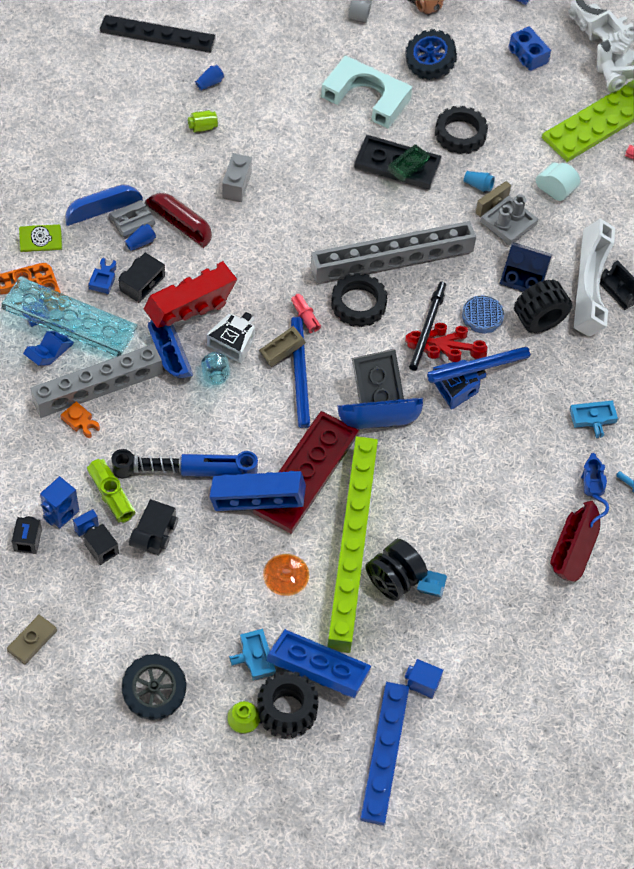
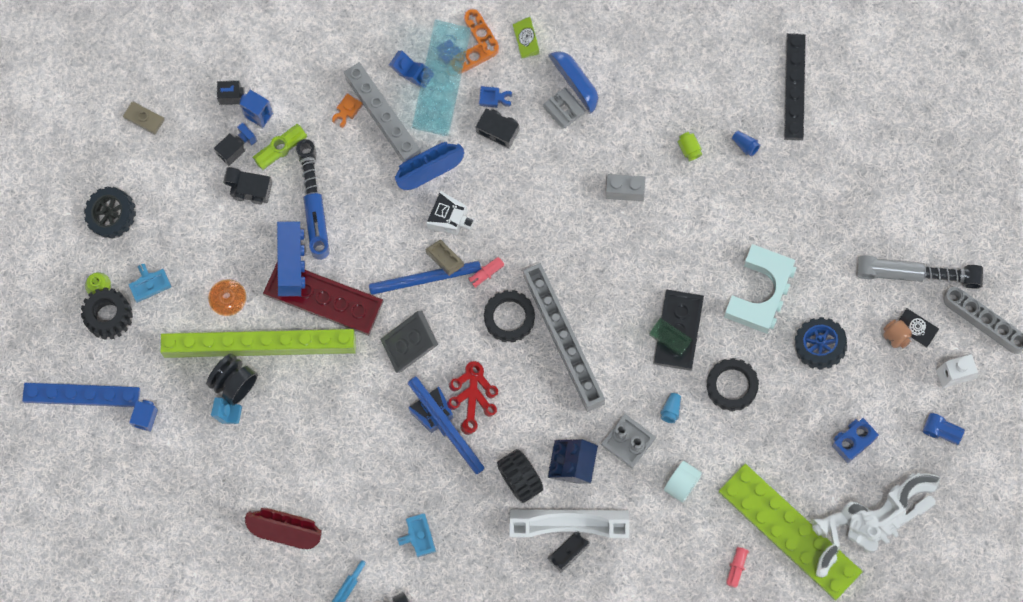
camera: 90 degrees right, 15 degrees up
(141, 237) = (542, 119): blue cone -> none
(181, 217) = (574, 149): dark red brick -> none
(191, 296) = (469, 168): red wedge -> none
(215, 368) = (411, 206): clear light blue head -> none
(319, 663) = (143, 332): blue plate -> none
(381, 413) = (387, 349): blue brick -> none
(436, 299) = (523, 384): black bar -> none
(483, 314) = (516, 428): tile -> none
(492, 198) = (649, 423): dark tan plate -> none
(595, 482) = (345, 539): blue animal -> none

